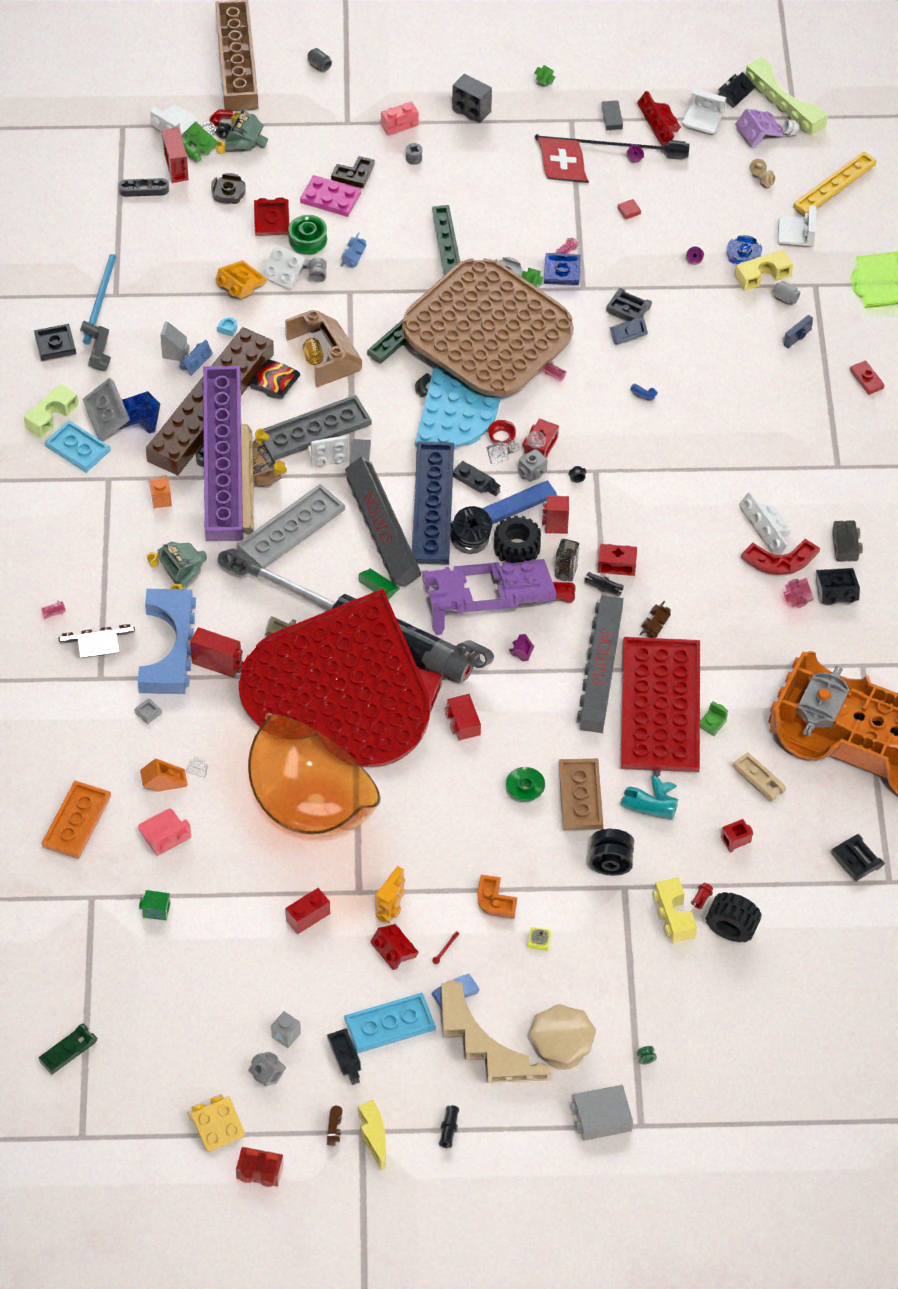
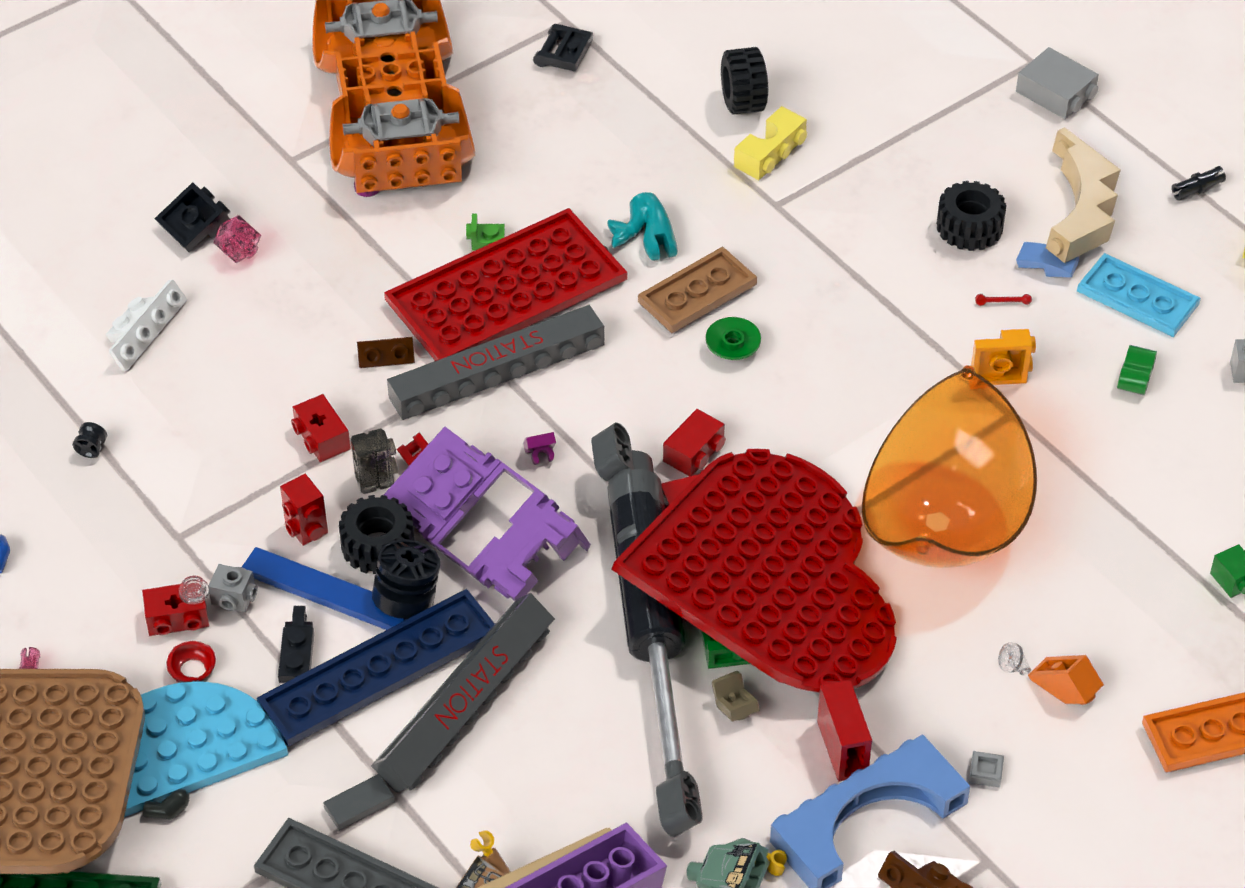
camera: 125 degrees left, 5 degrees down
(165, 831) = (1135, 624): coral bracket -> none
(291, 526) = (552, 796): light grey plate -> none
(307, 910) = (1092, 428): red brick -> none
(328, 451) = (389, 831): white bracket -> none
(331, 969) = (1137, 369): none -> green axle
(345, 1054) = (1215, 303): black hinge -> none
(376, 582) = (563, 648): green slope -> none
(393, 945) = (1053, 335): red bracket -> none
(491, 901) = (908, 291): orange plate -> none
(499, 451) = (233, 642): clear plate -> none
(521, 983) = (971, 215): none -> black tyre
(539, 938) = (912, 232): tile -> none
(563, 1036) = (1012, 144): tan piece -> none
(577, 474) = (204, 543): black plate -> none
(604, 584) = (369, 417): black pin -> none
(611, 852) = (758, 210): black wheel -> none
(646, 1055) = (959, 84): clear green bush -> none
(692, 459) = (89, 440): none -> black wheel
(705, 890) = (728, 134): red pin -> none
(736, 835) = (629, 140): red brick -> none
(759, 776) = (530, 163): tan plate -> none
(781, 564) = (192, 277): red plate -> none
(846, 541) = (115, 242): clear smoke brick -> none

